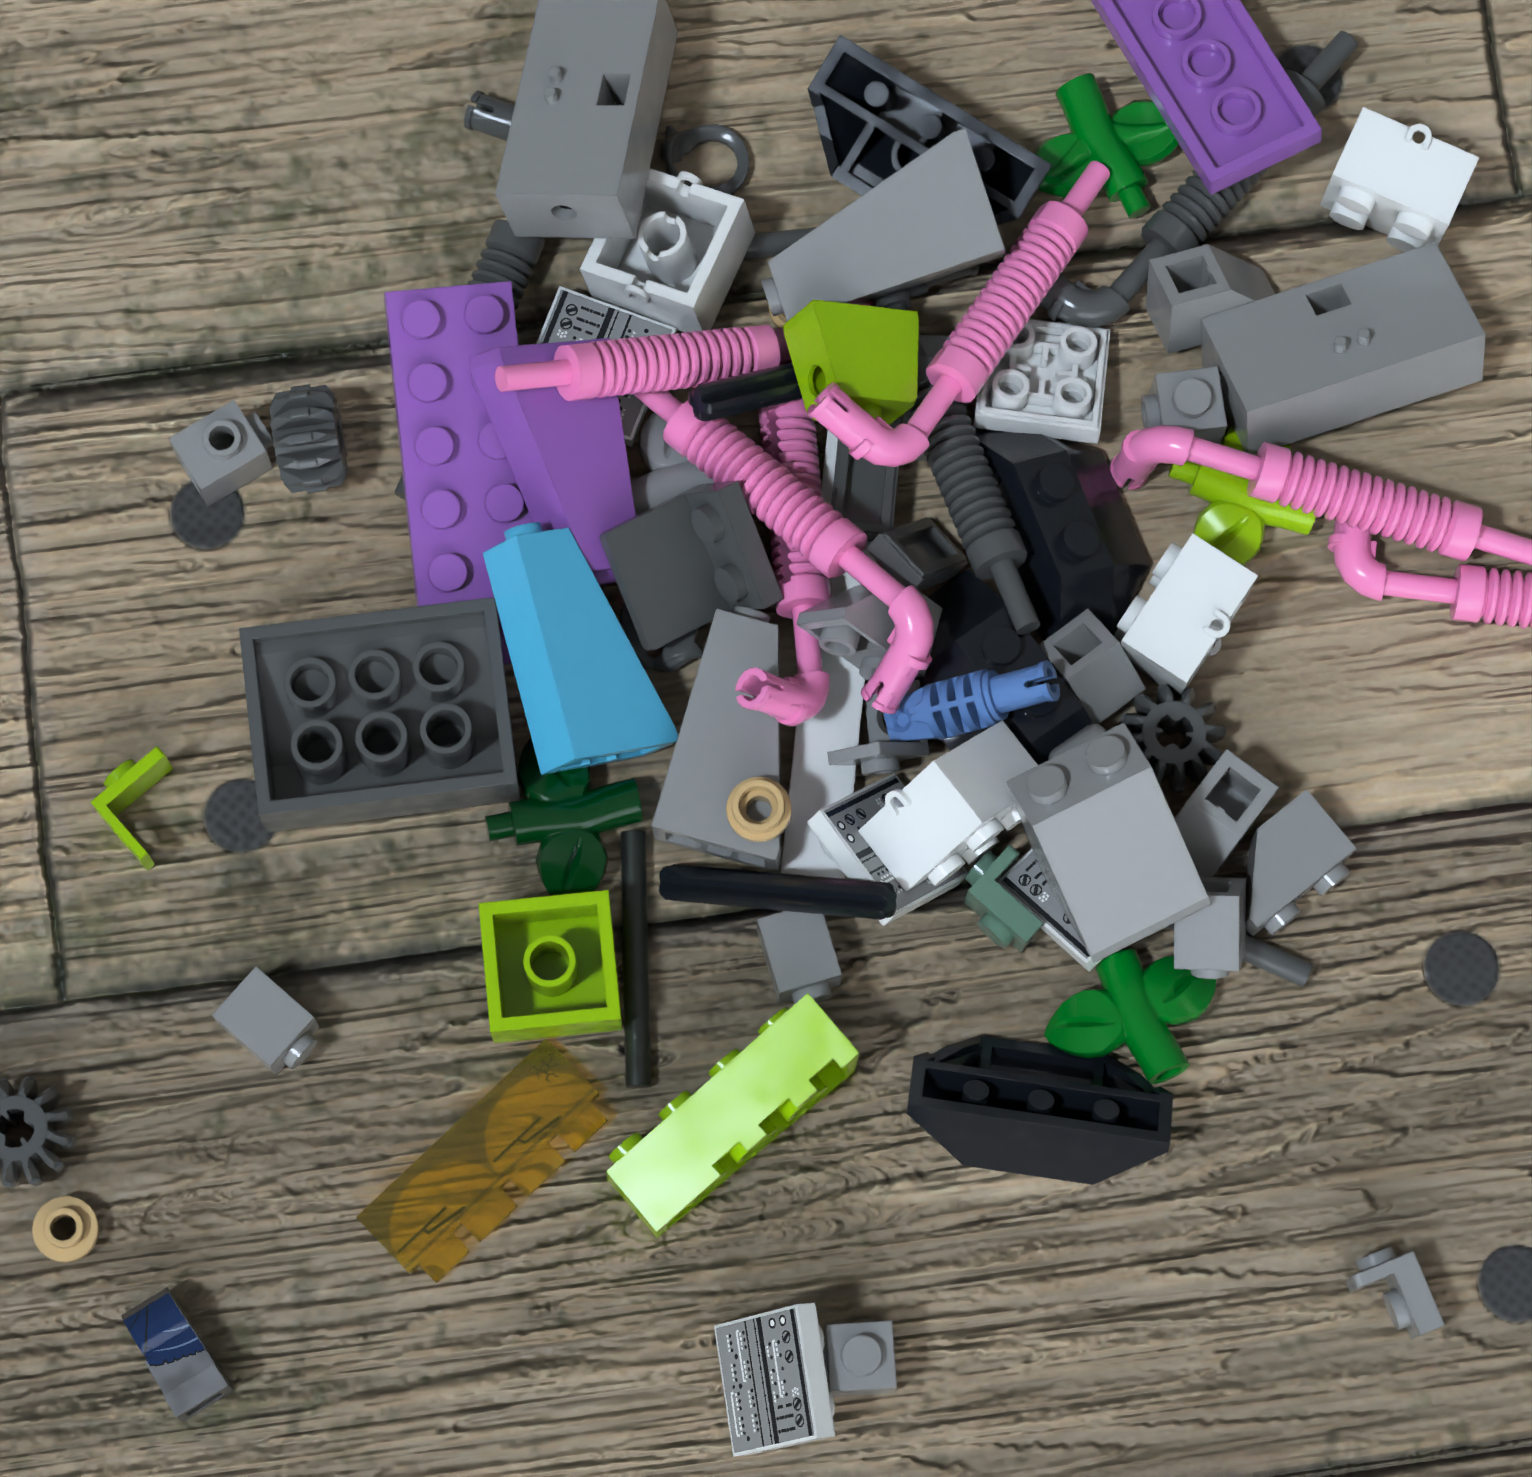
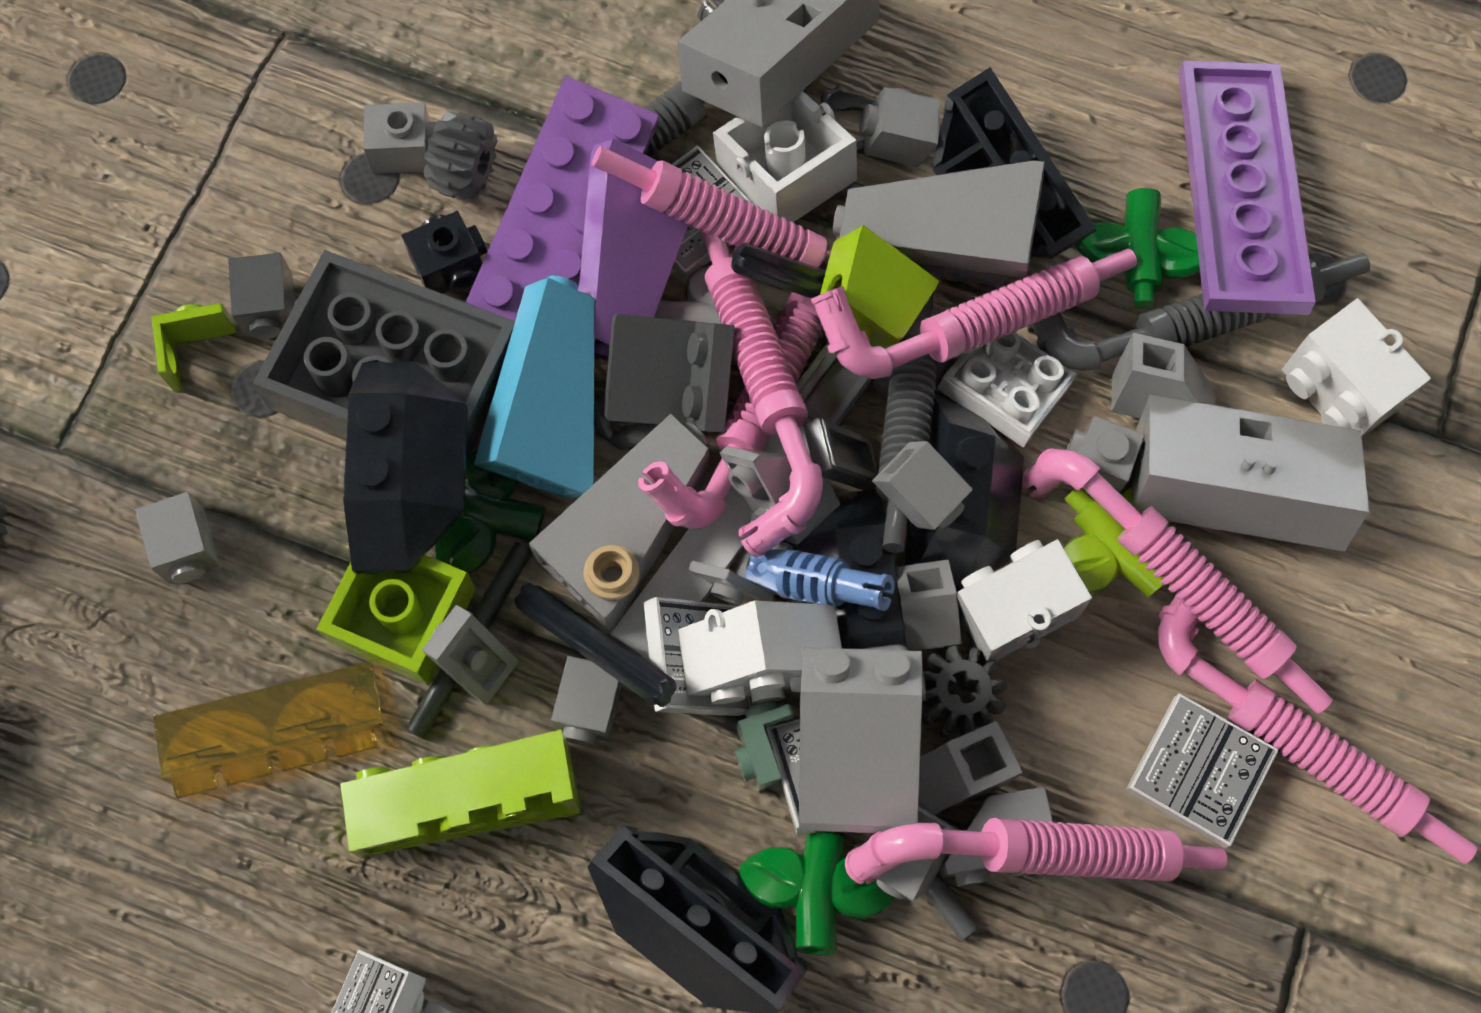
camera: 30 degrees right, 5 degrees down
(191, 714) = (261, 294): none -> dark grey brick
(344, 569) = (445, 252): none -> black brick
(481, 812) = (401, 465): none -> black wedge
(657, 972) = (470, 654): none -> light grey plate
(770, 145) = (900, 126): none -> light grey brick
(1028, 550) = (923, 486): none -> light grey brick
(1335, 854) = (1038, 849): none -> bright pink piece
(1451, 686) = (1202, 770): none -> light grey tile

